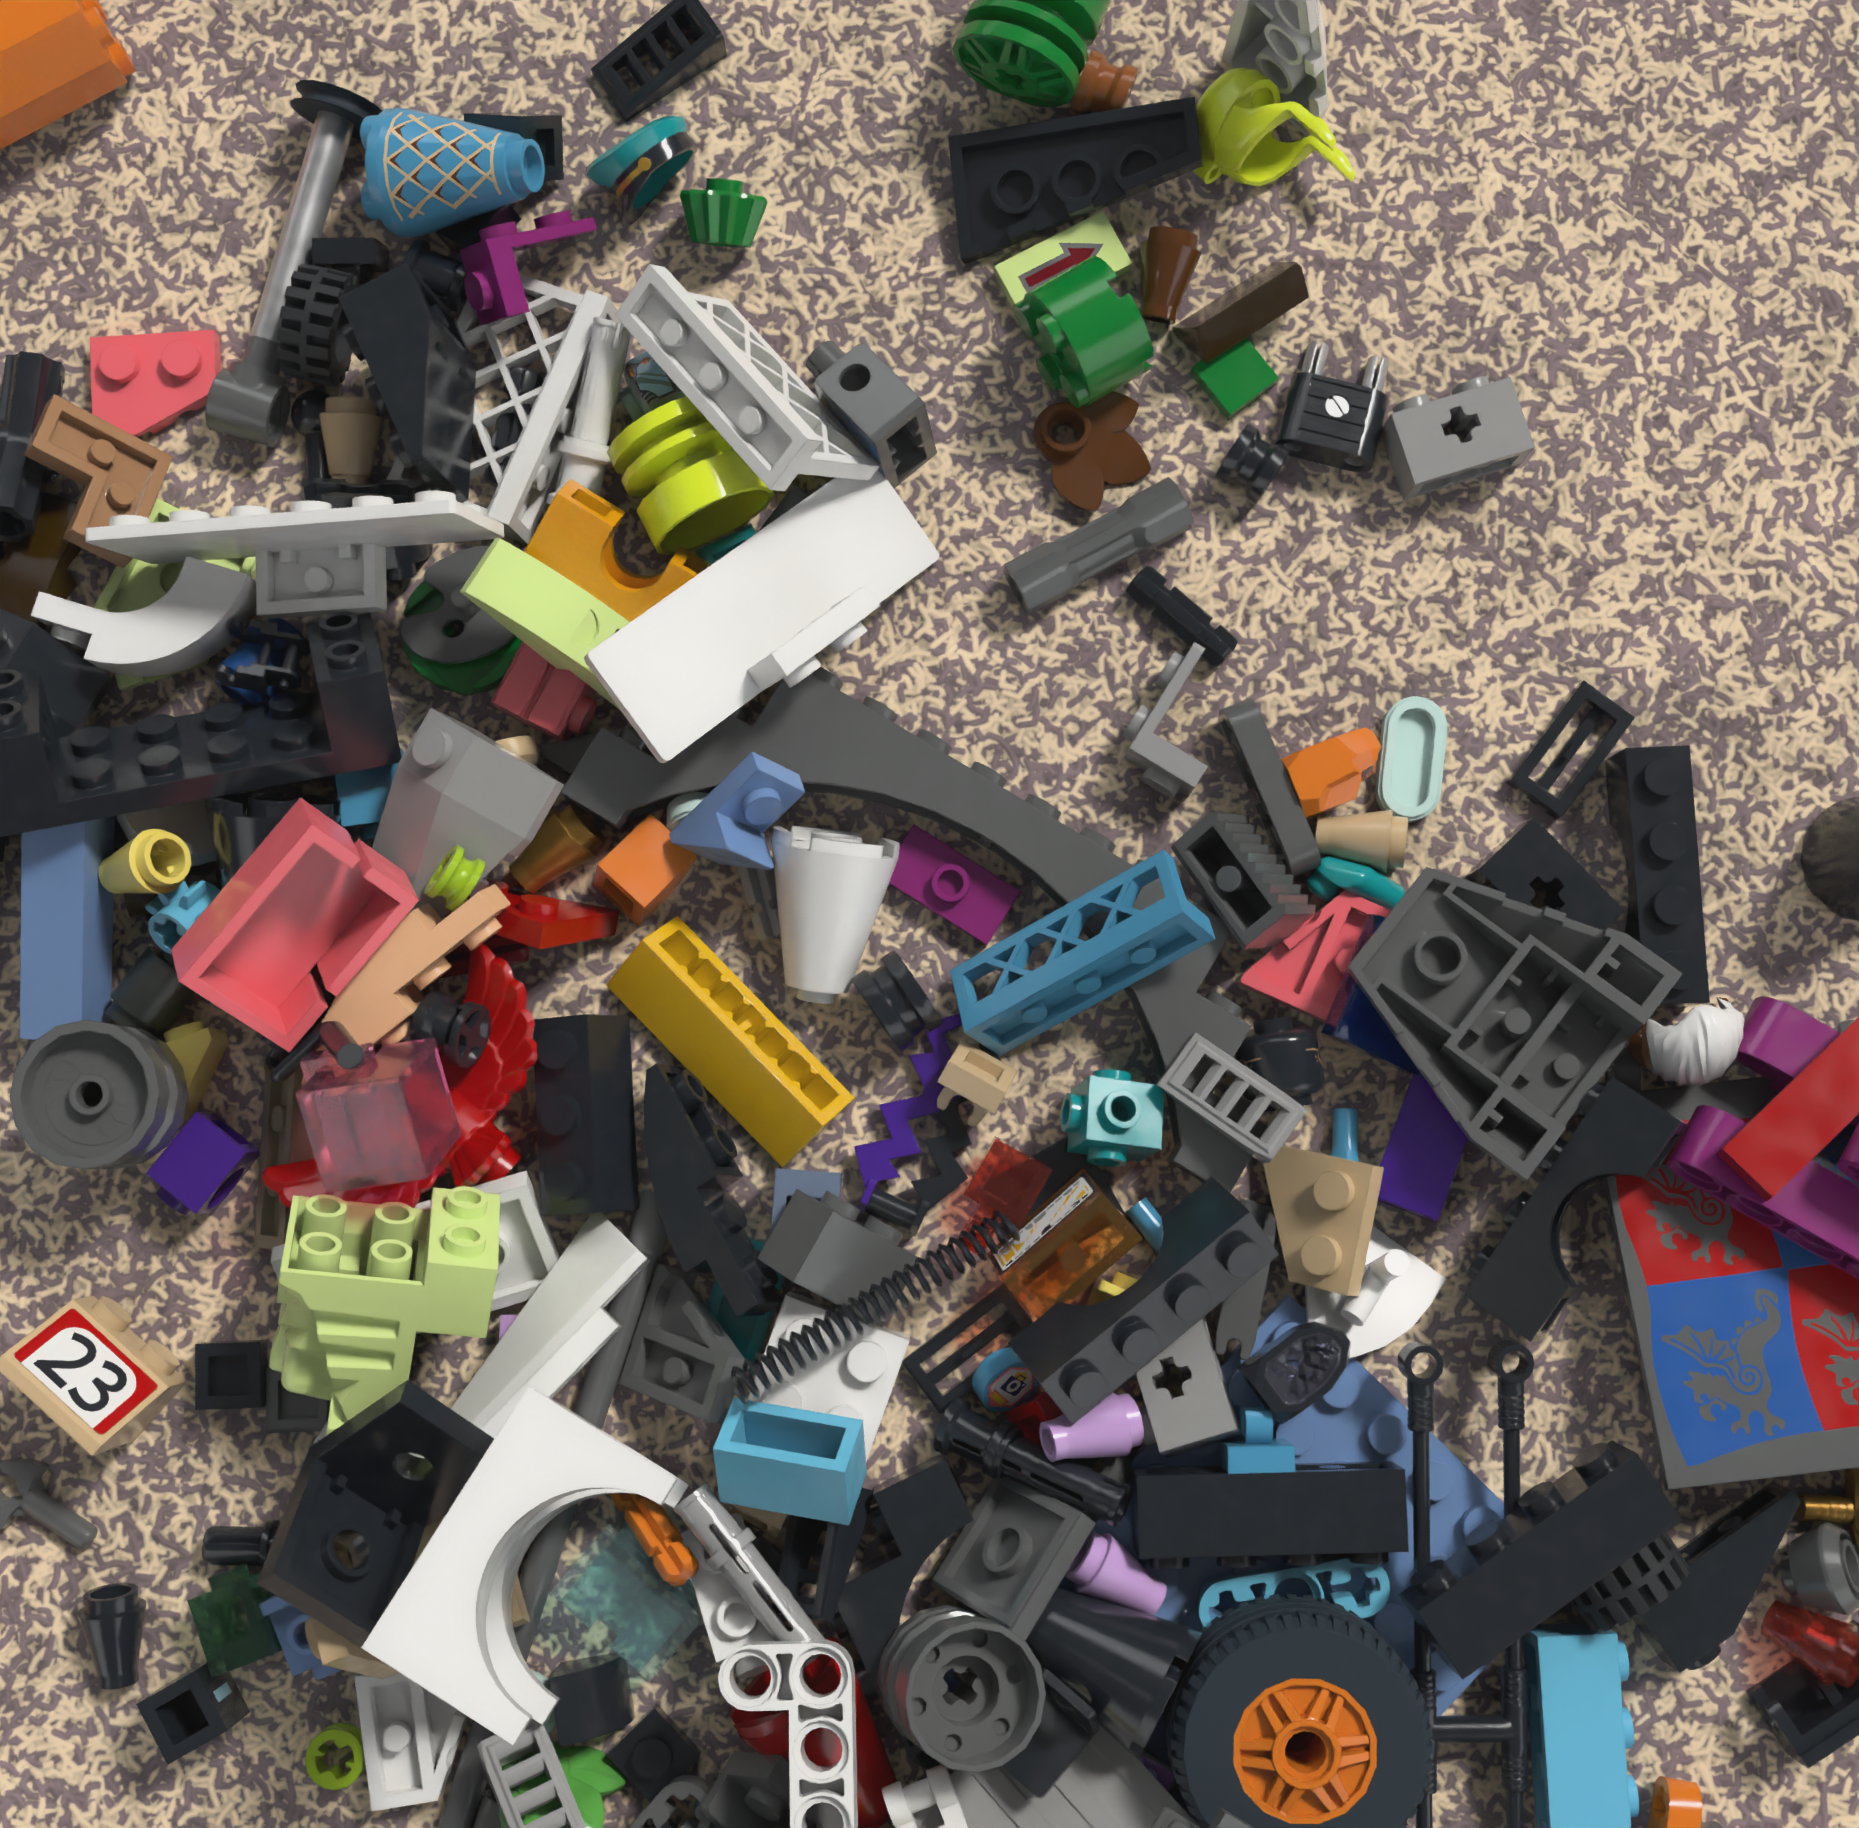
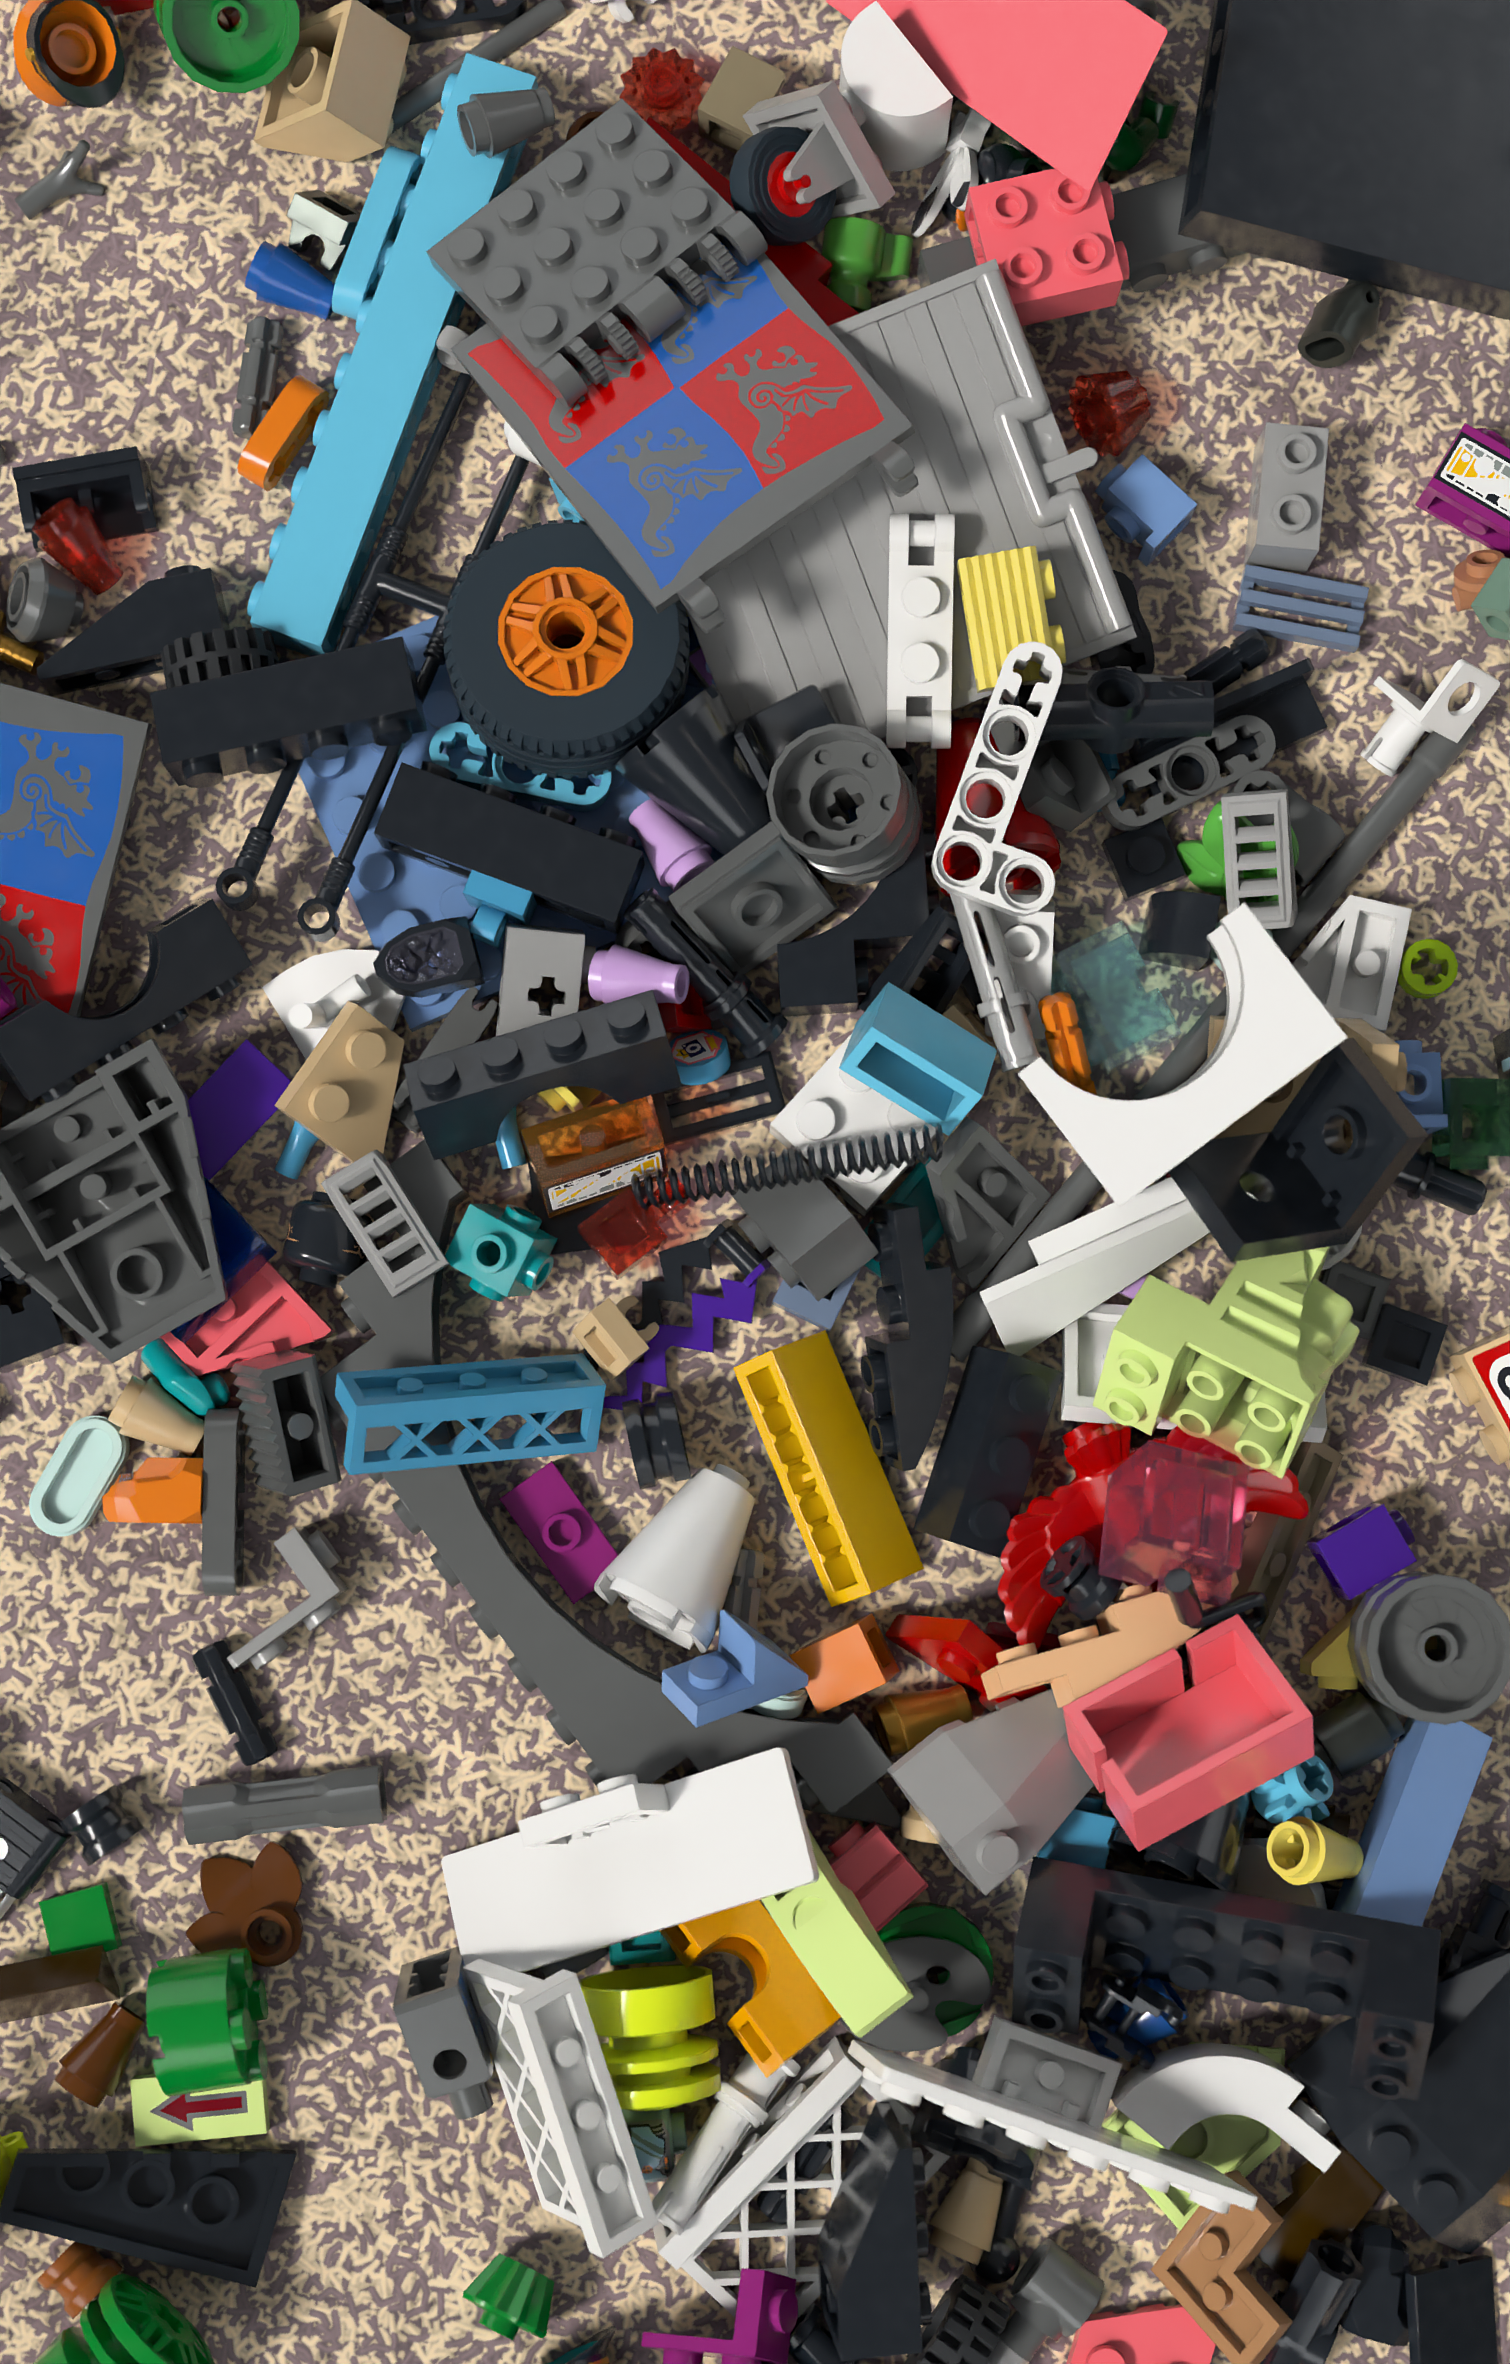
camera: 155 degrees left, 0 degrees up
(454, 878) = (1023, 1718): lime bush -> none

